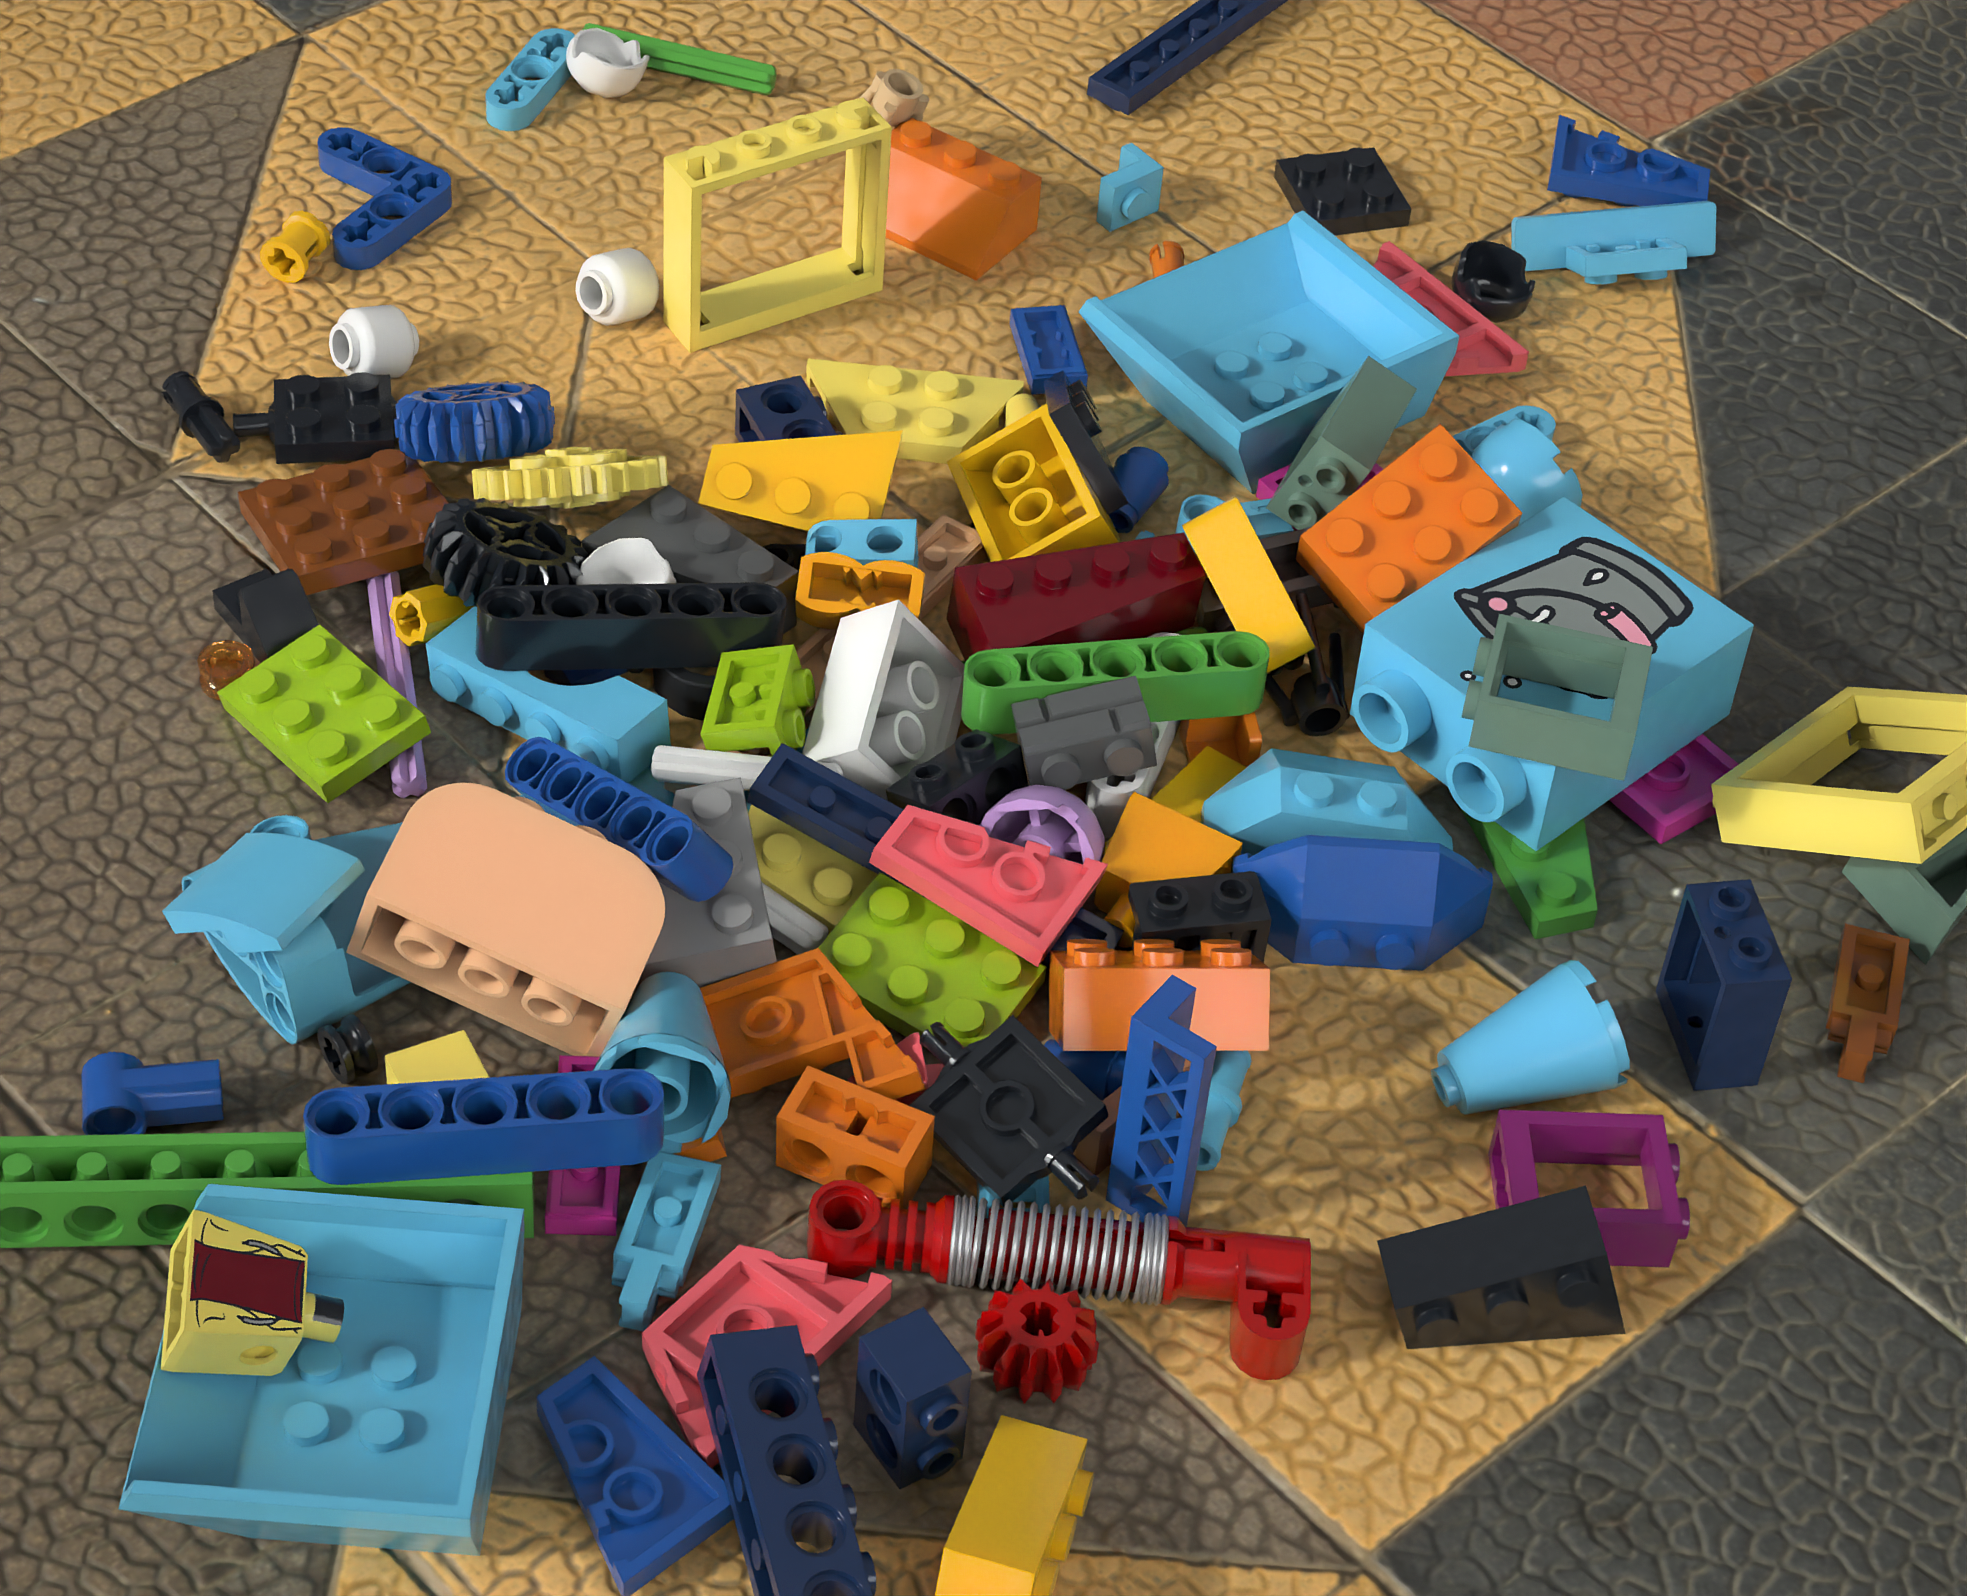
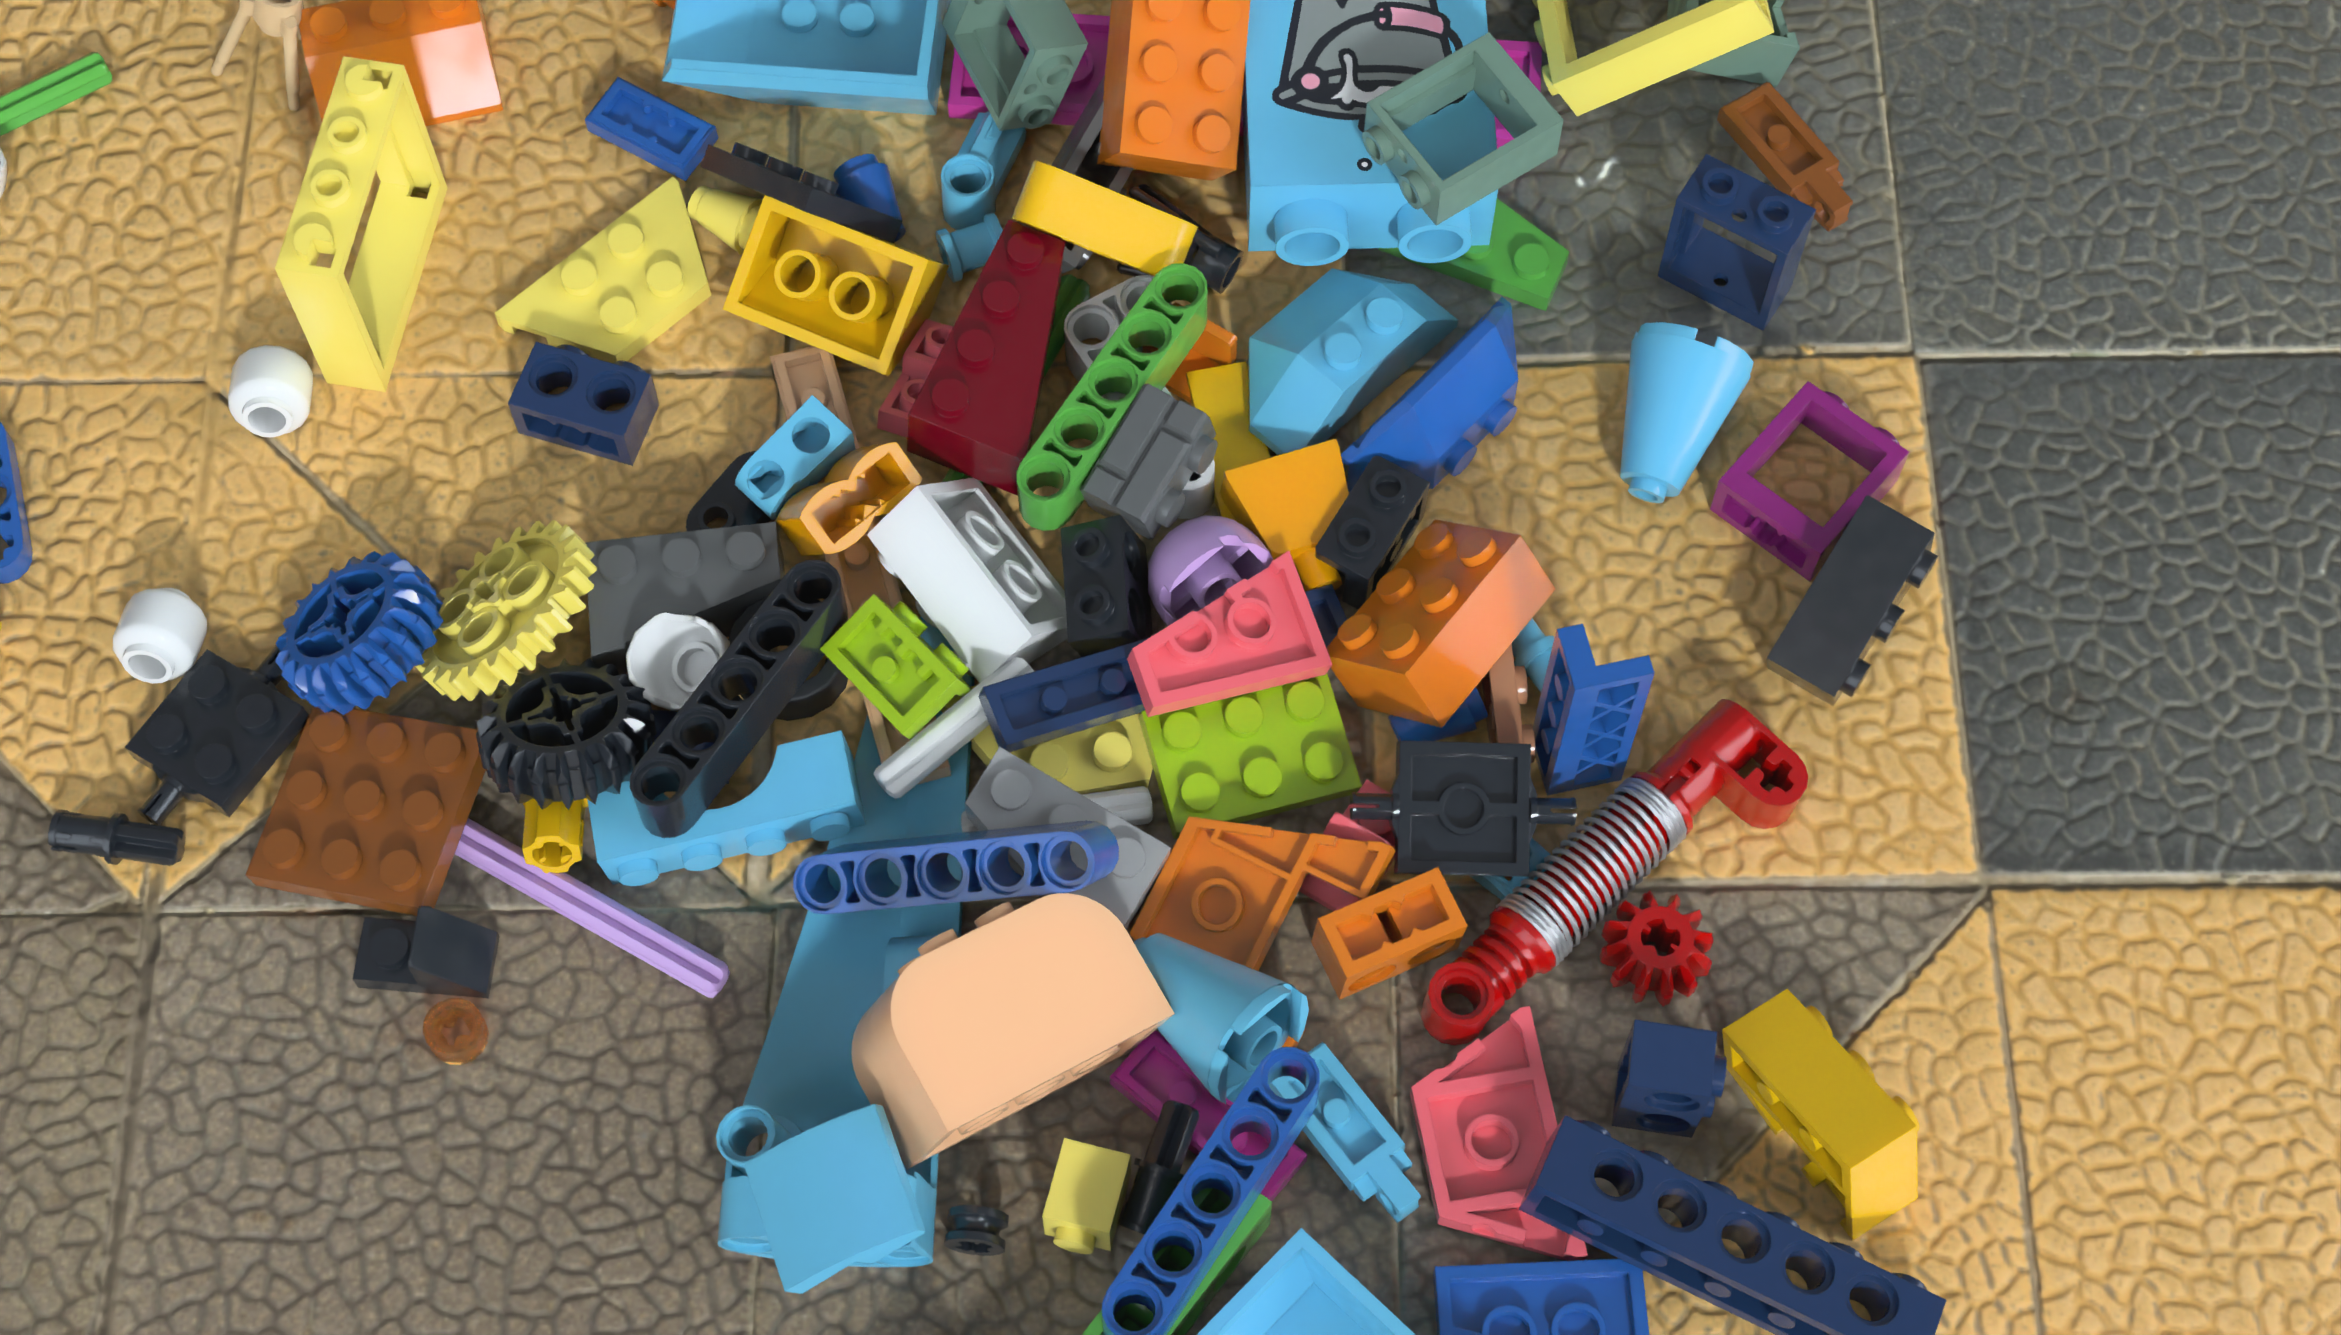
camera: 45 degrees left, 20 degrees up
(324, 713) = (586, 992): lime plate -> none
(802, 478) = (678, 439): yellow wedge -> none

